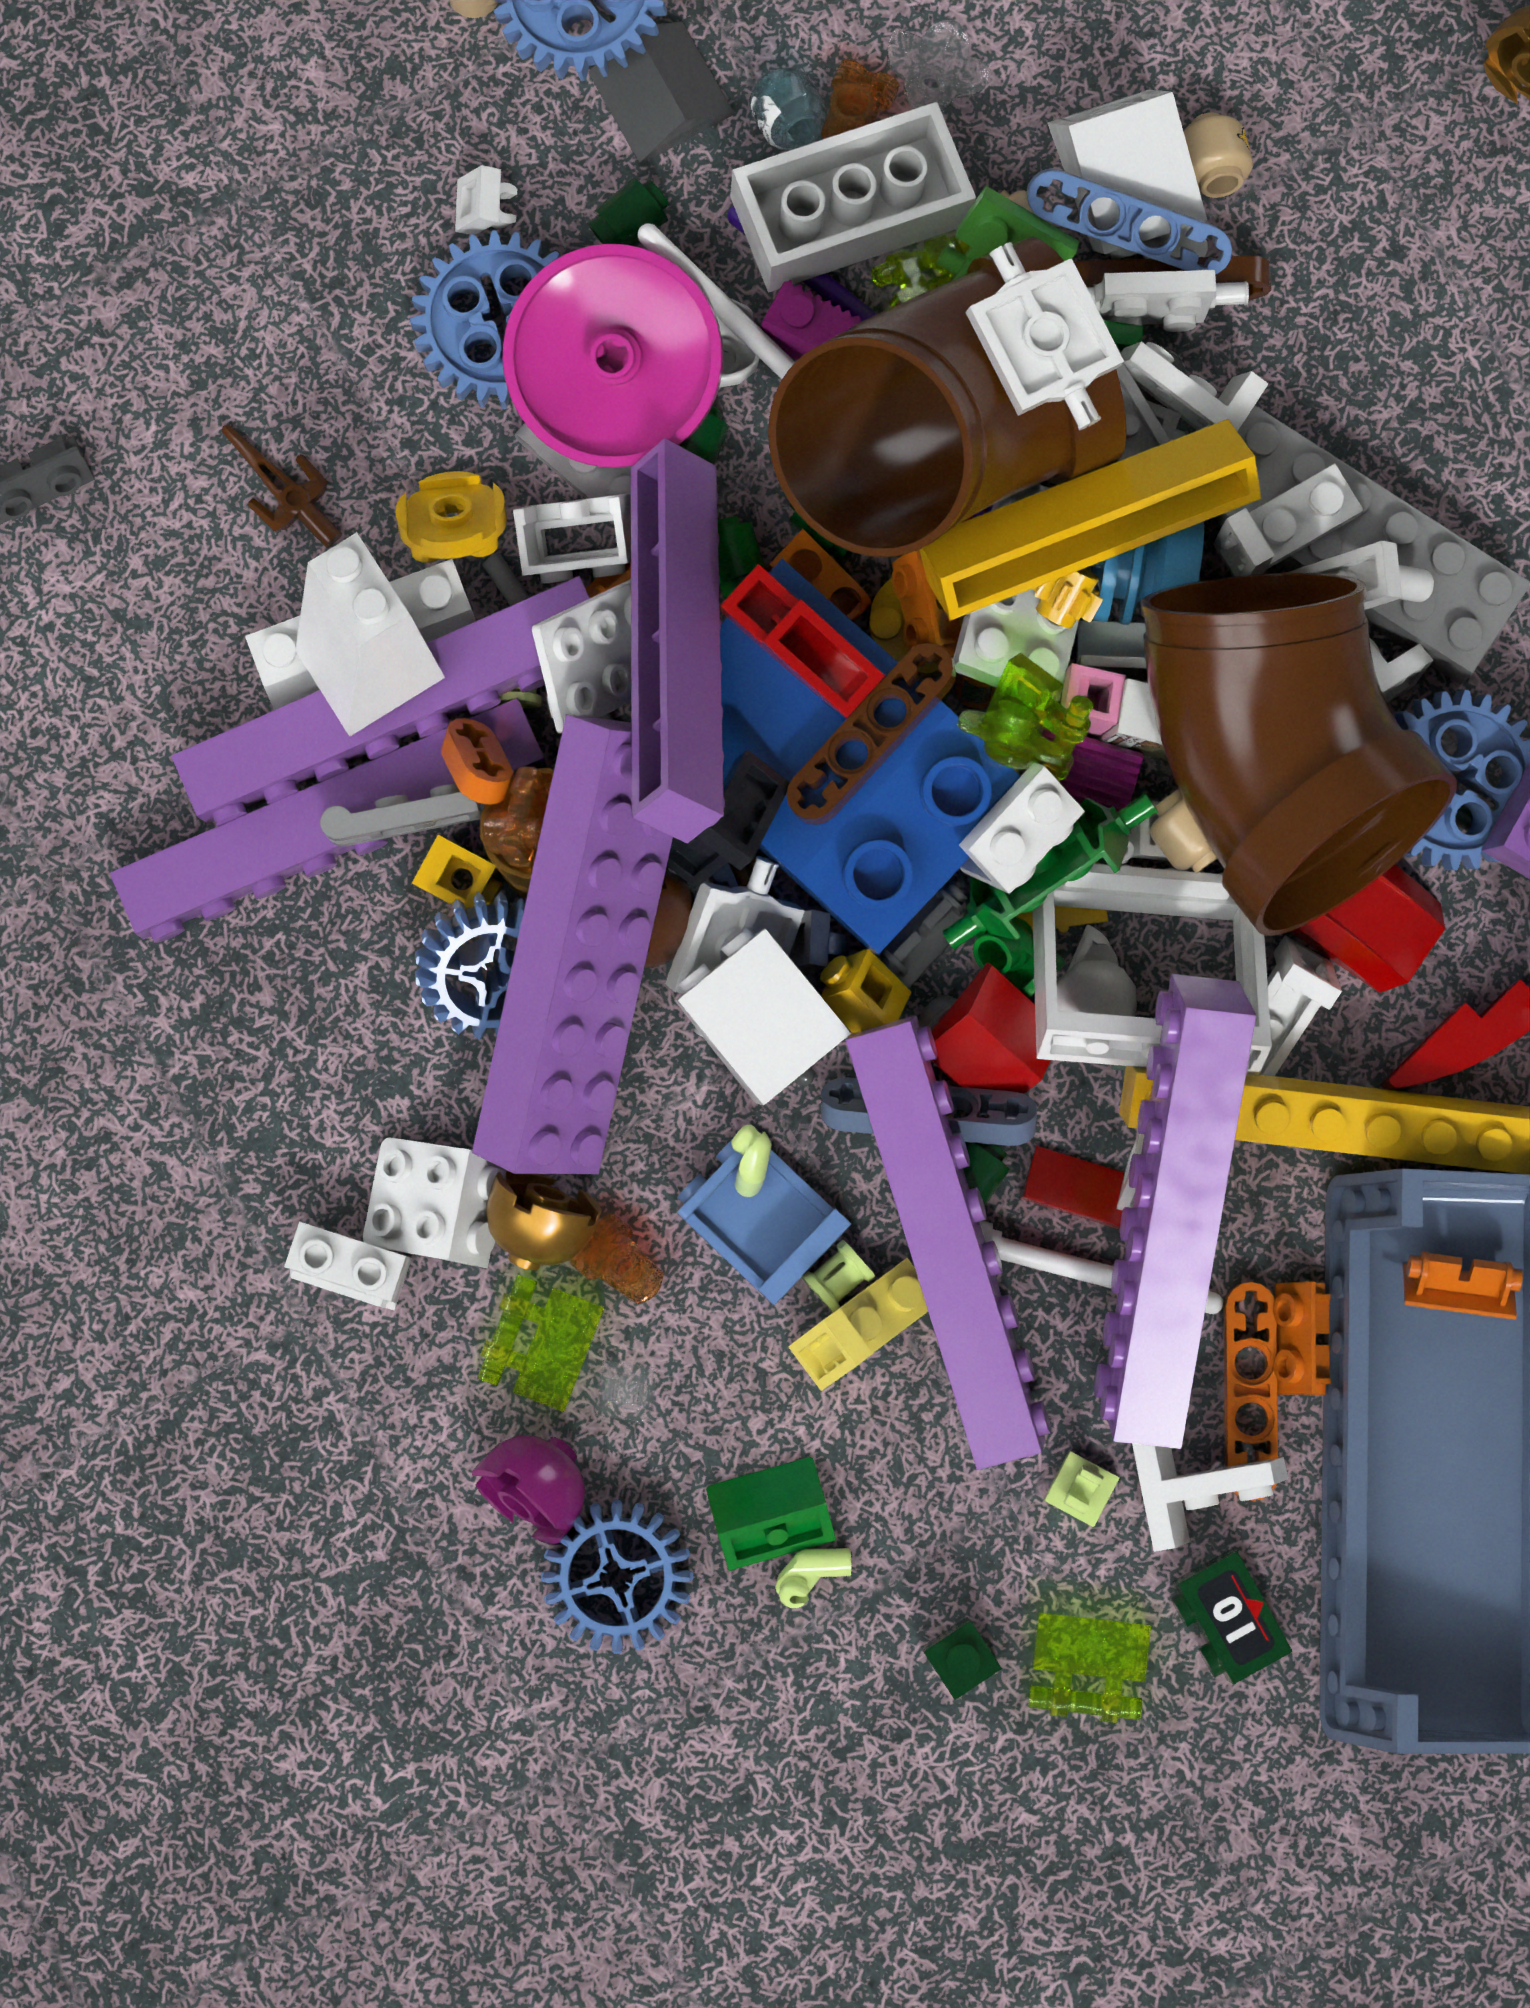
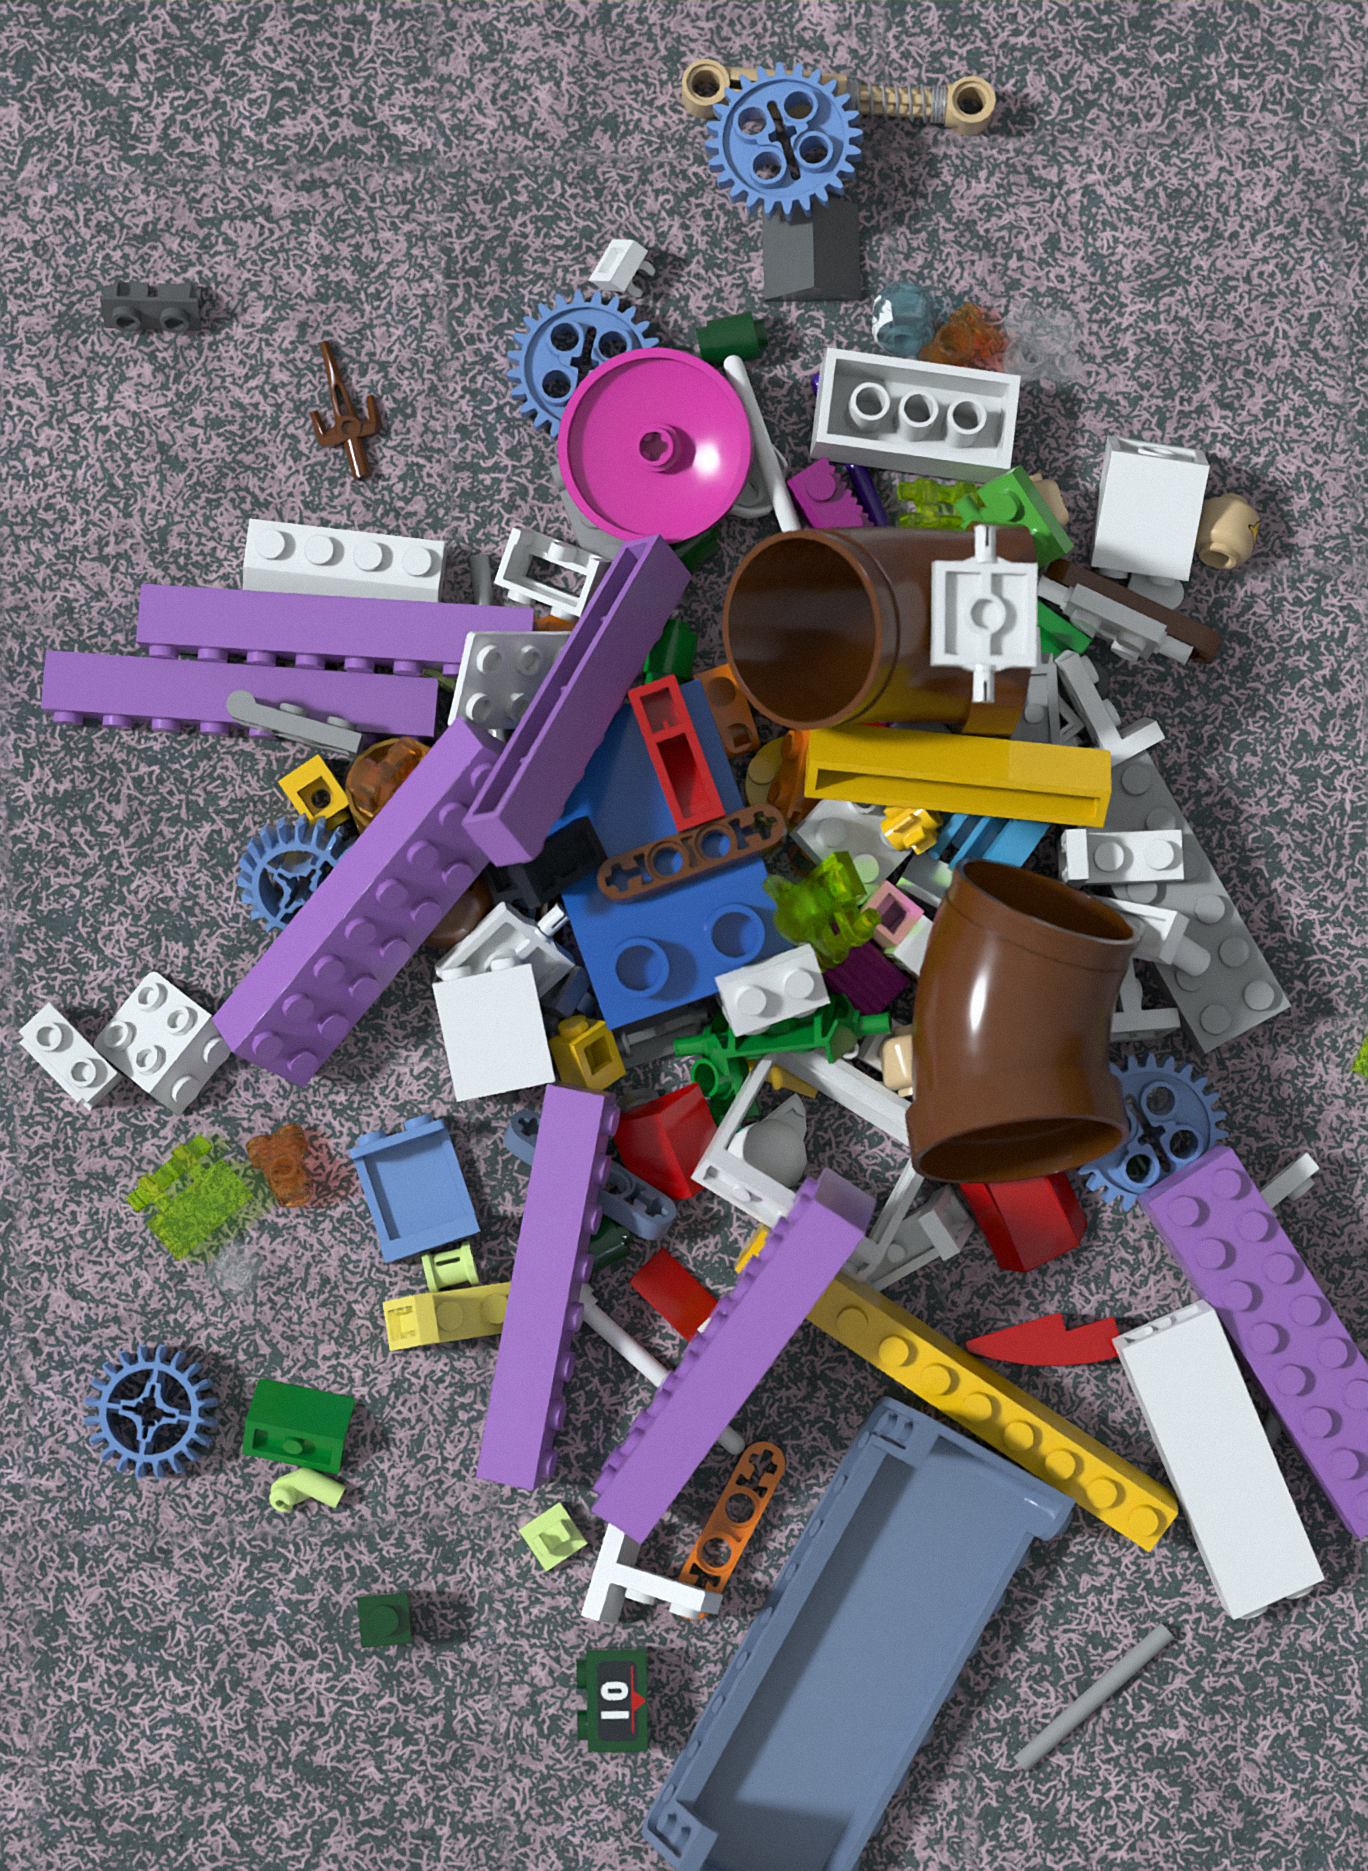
camera: 25 degrees right, 0 degrees up
(360, 637) = (334, 570): white slope -> none
(433, 535) = (472, 528): yellow plate -> none
(476, 761) = (376, 713): orange beam -> none
(535, 1483) = (125, 1304): magenta cylinder -> none
(538, 1220) = (237, 1099): pearl gold cylinder -> none
(754, 1163) = (430, 1141): yellowish green arm -> none
(1092, 1649) = (492, 1665): clear neon green plate -> none
(1131, 216) = (1128, 546): medium blue beam -> none
(1300, 1314) = (797, 1490): orange hinge -> none
(1440, 1284) = (922, 1526): orange hinge -> none

